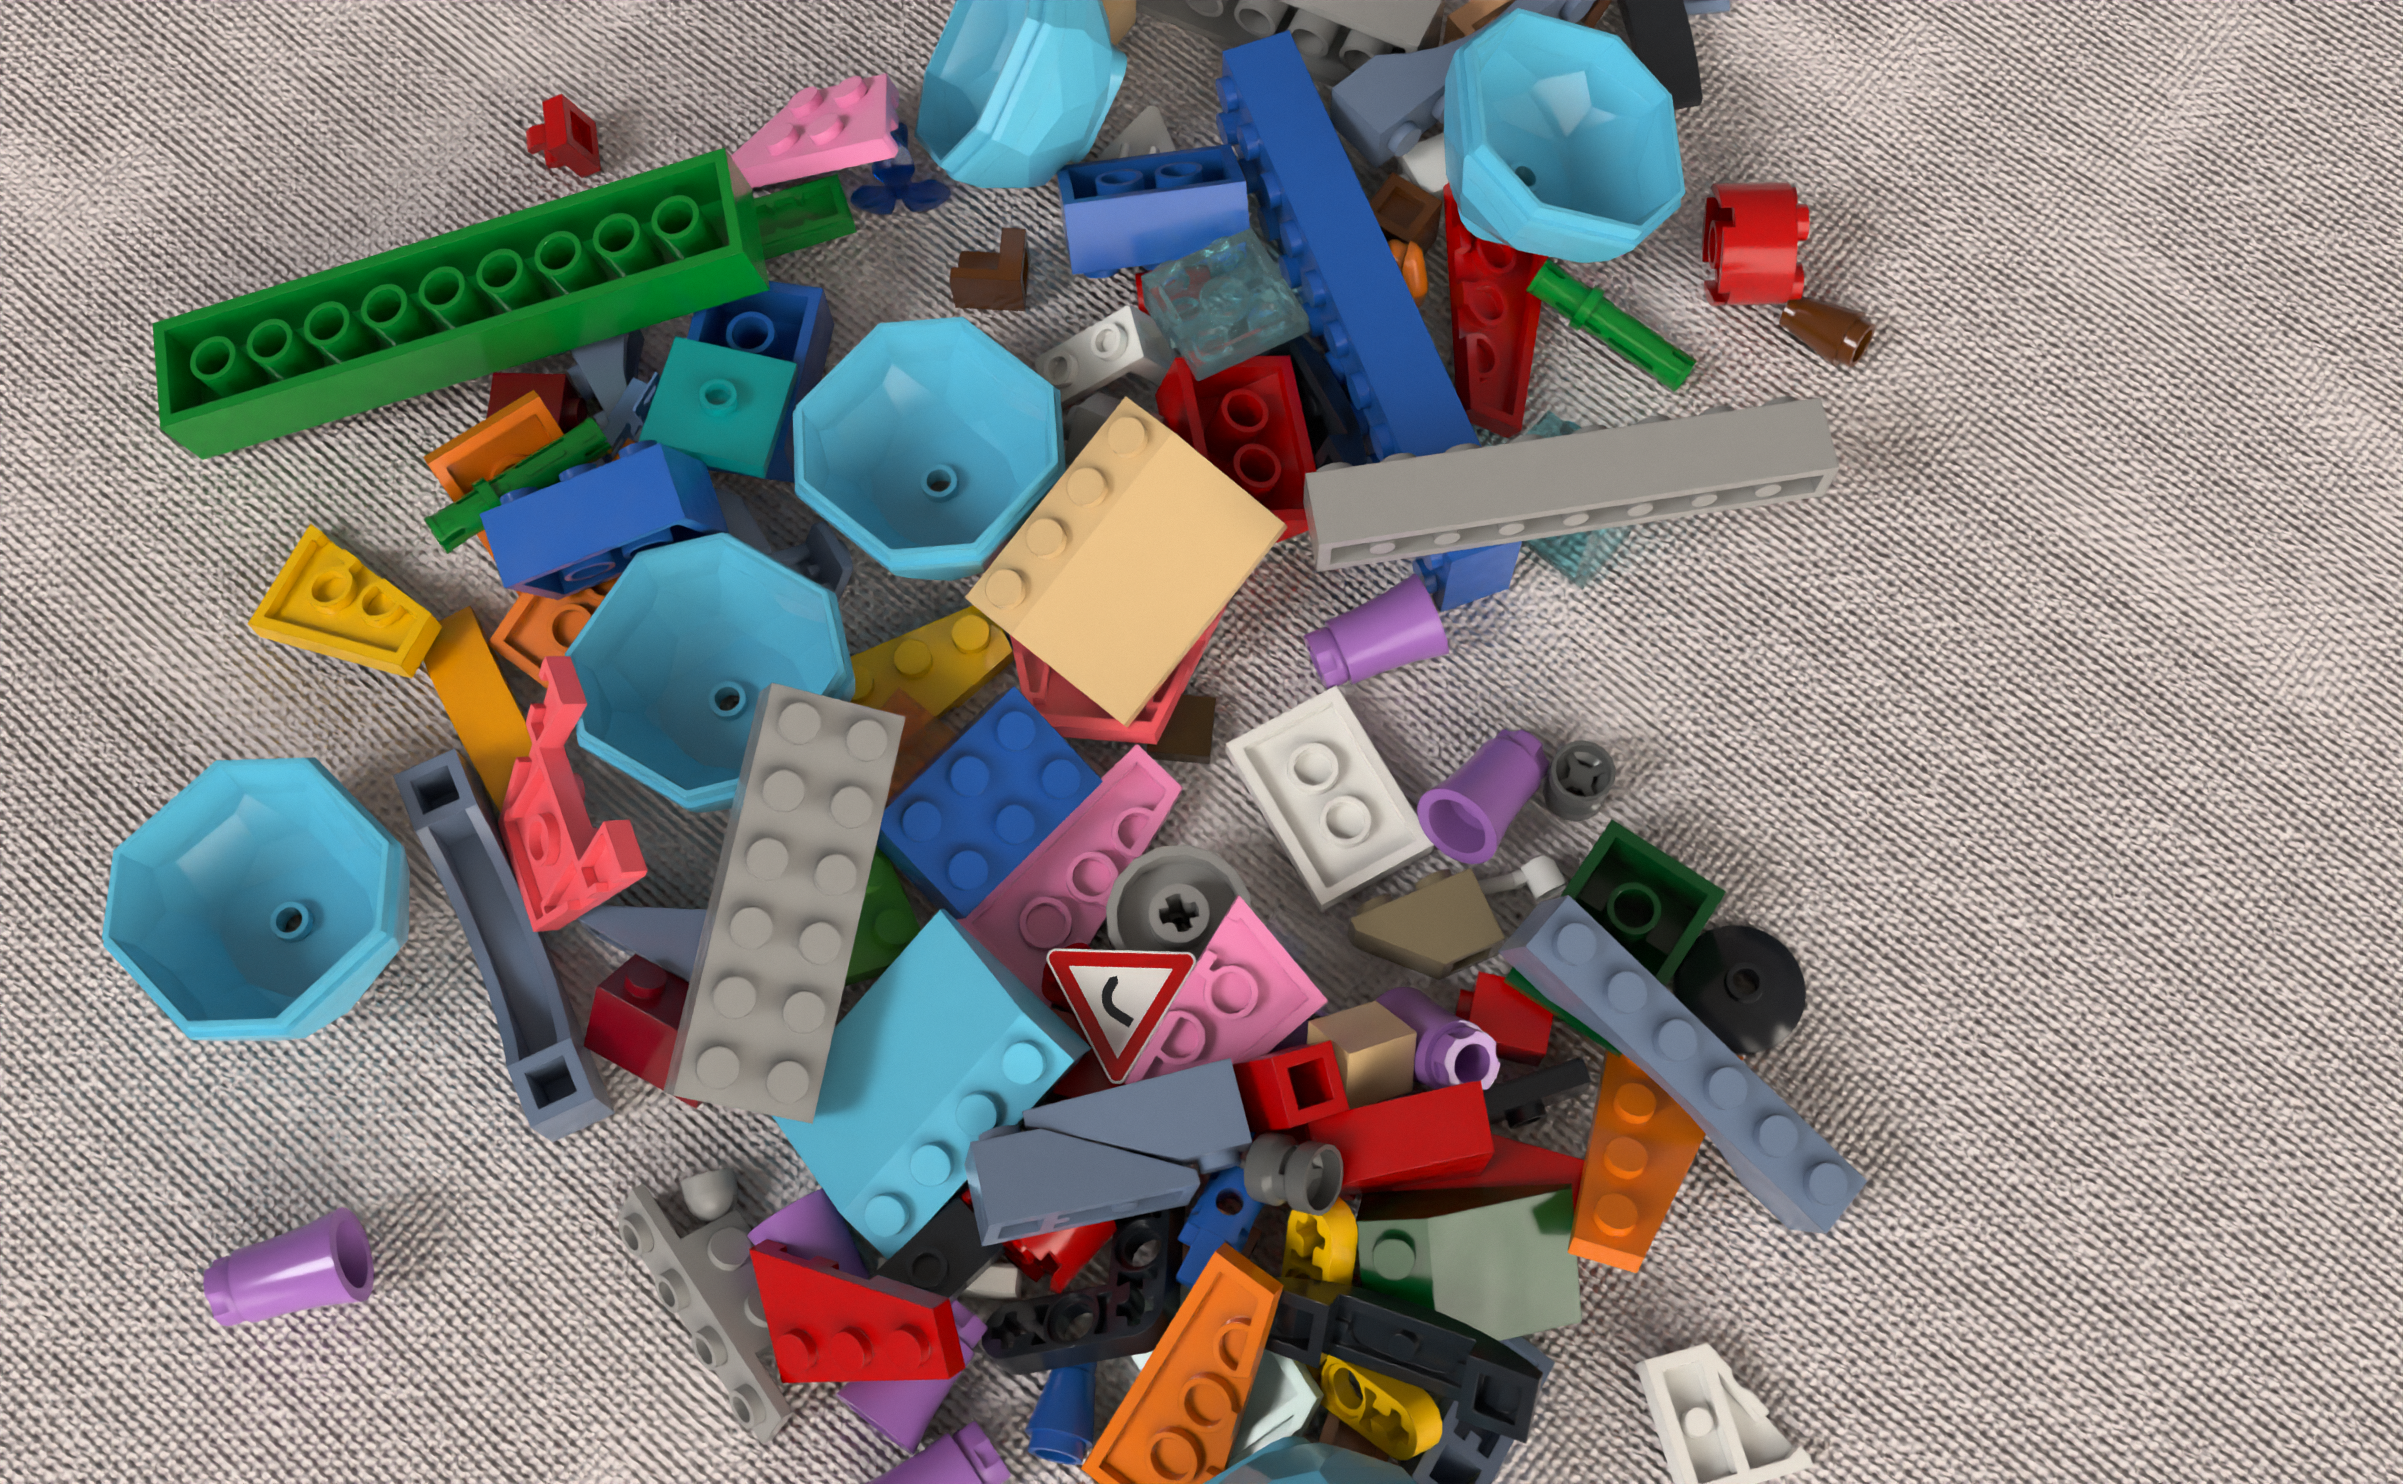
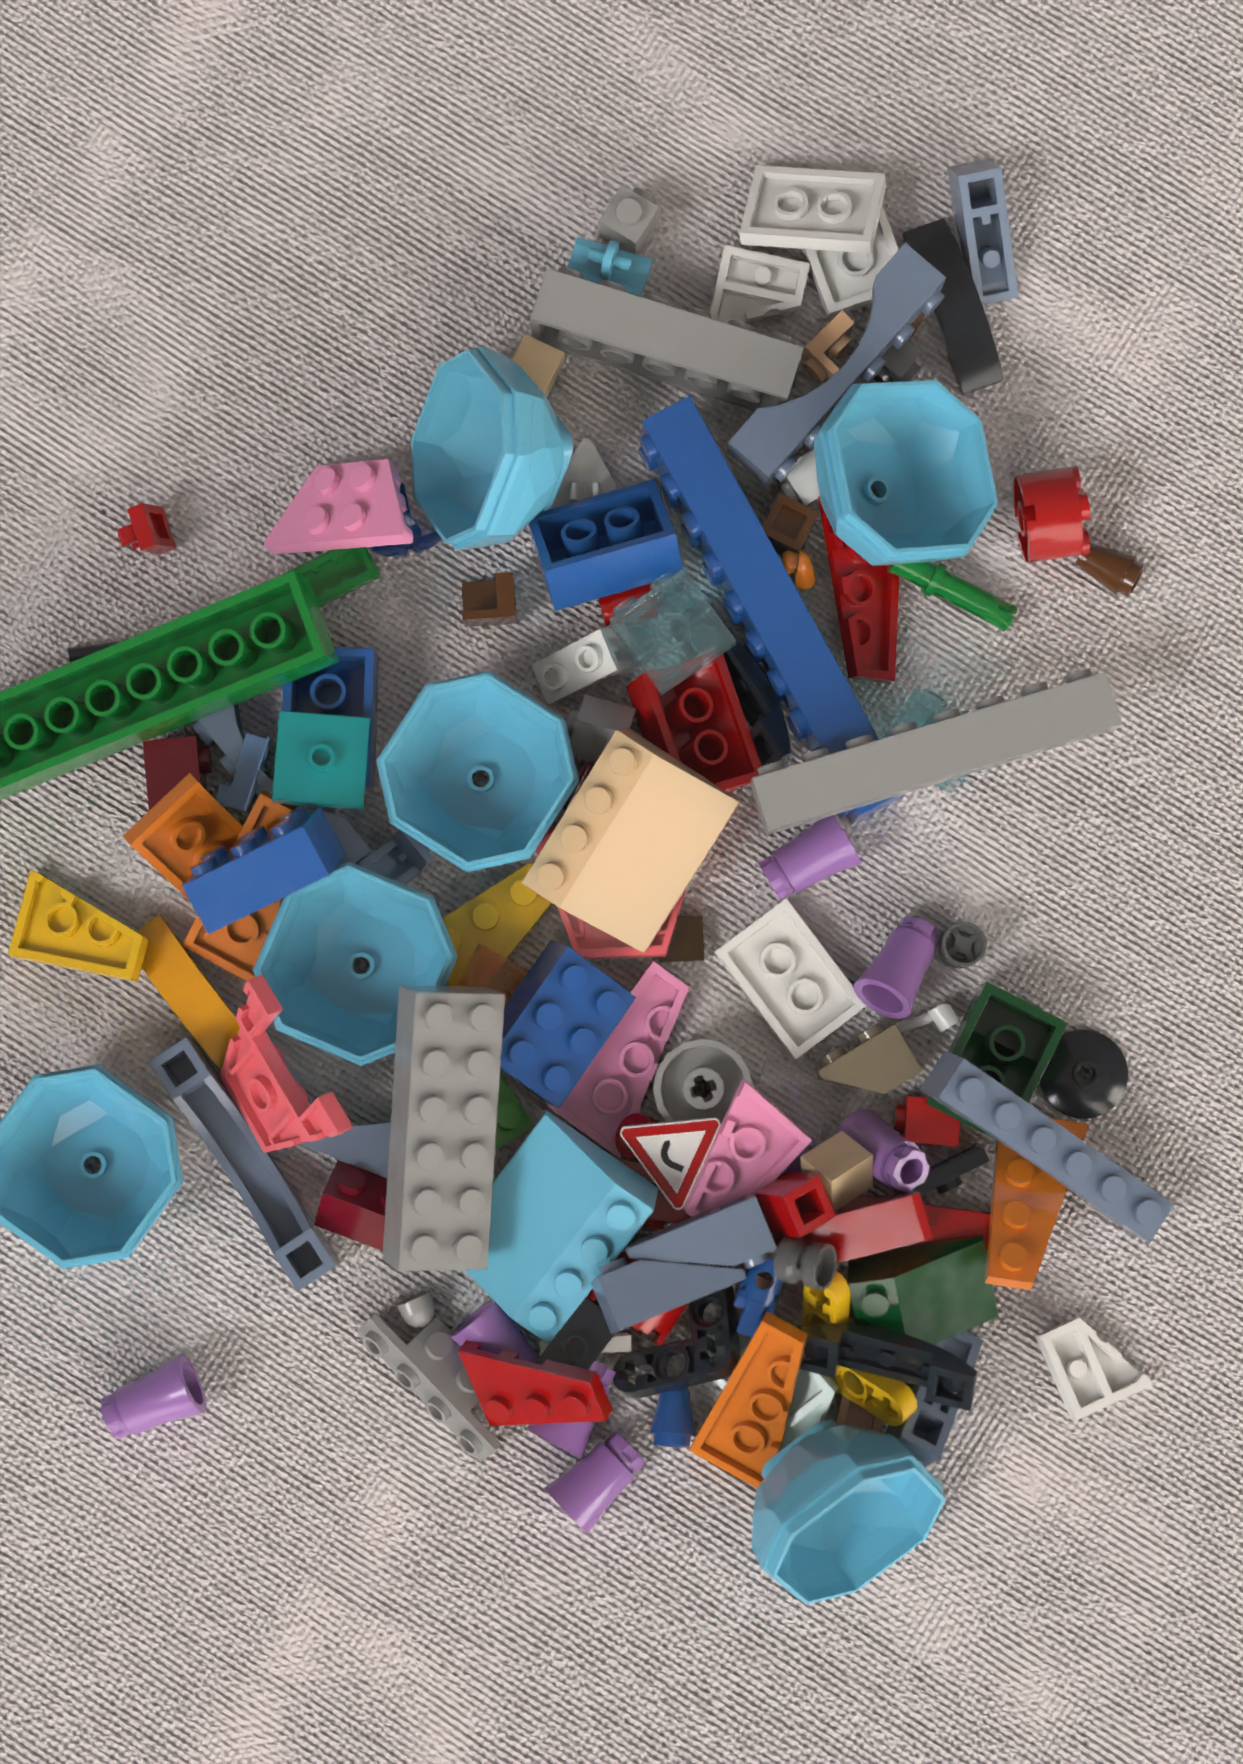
camera: 10 degrees left, 15 degrees up
(540, 469) = (194, 844): green pin -> none

